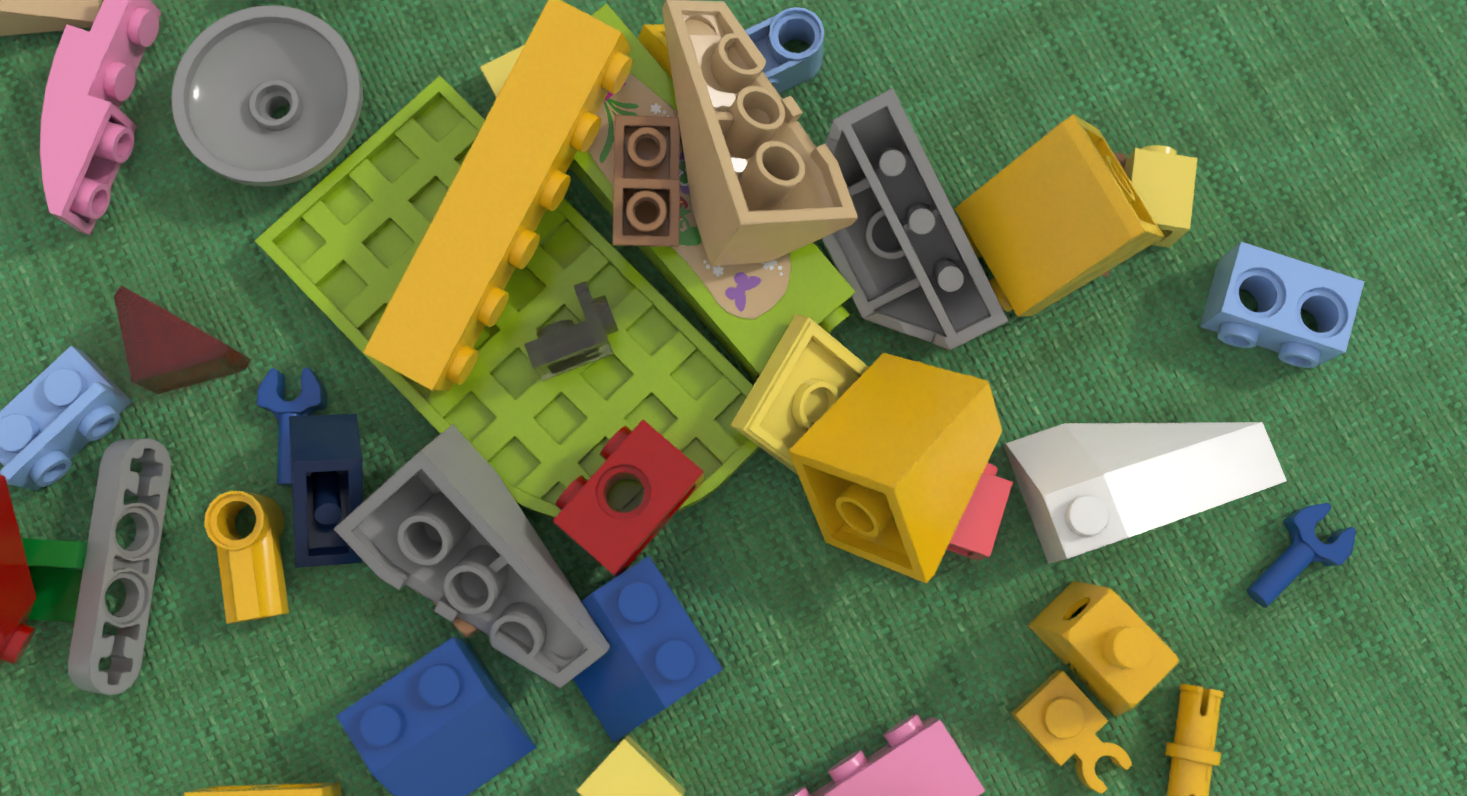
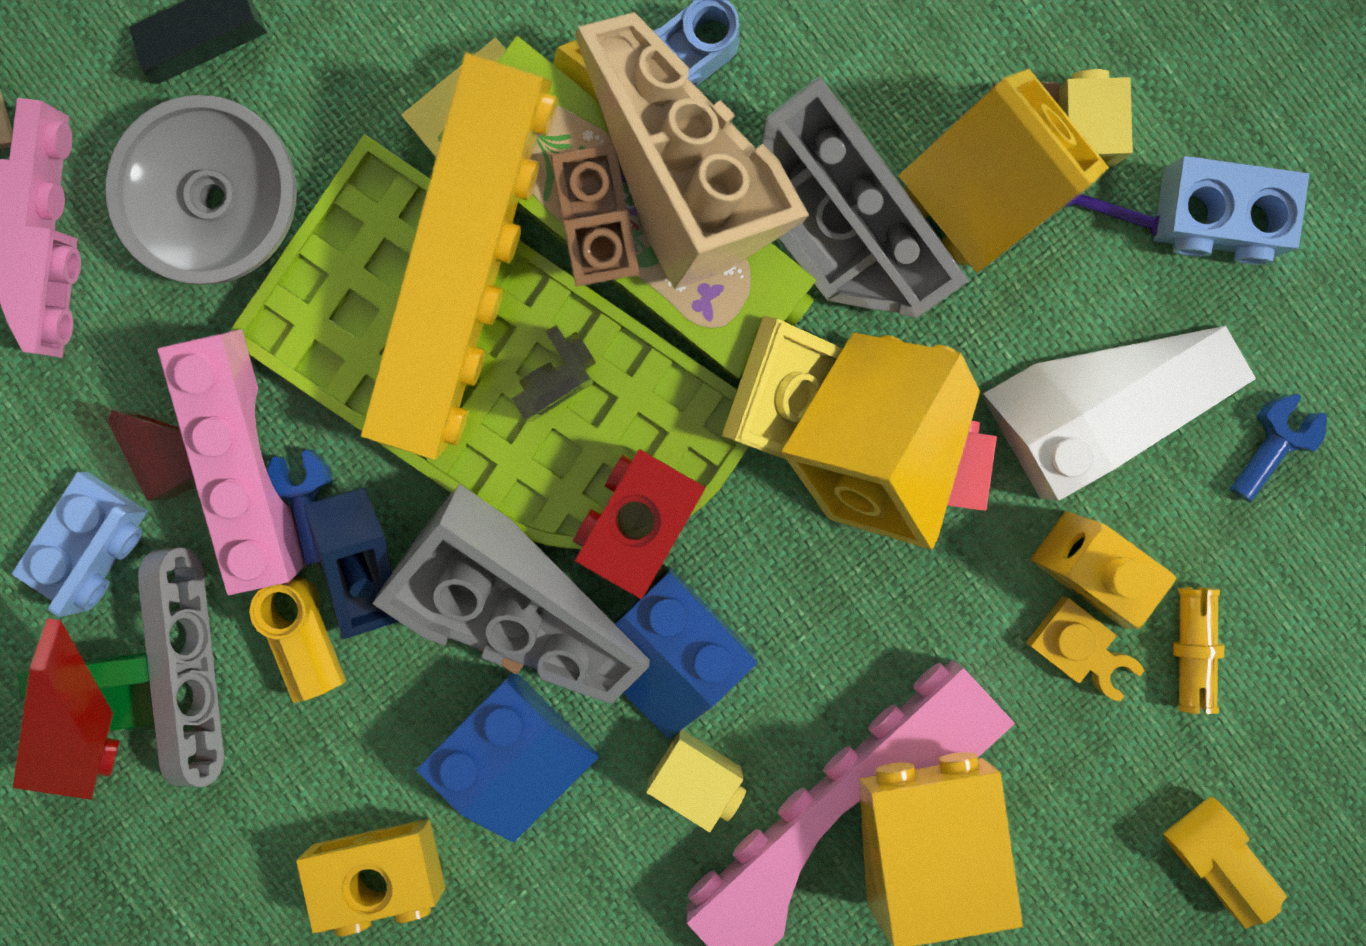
camera: 10 degrees left, 10 degrees up
(224, 301) = (215, 410): none -> bright pink arch
(1125, 268) = (1116, 212): none -> dark purple hinge

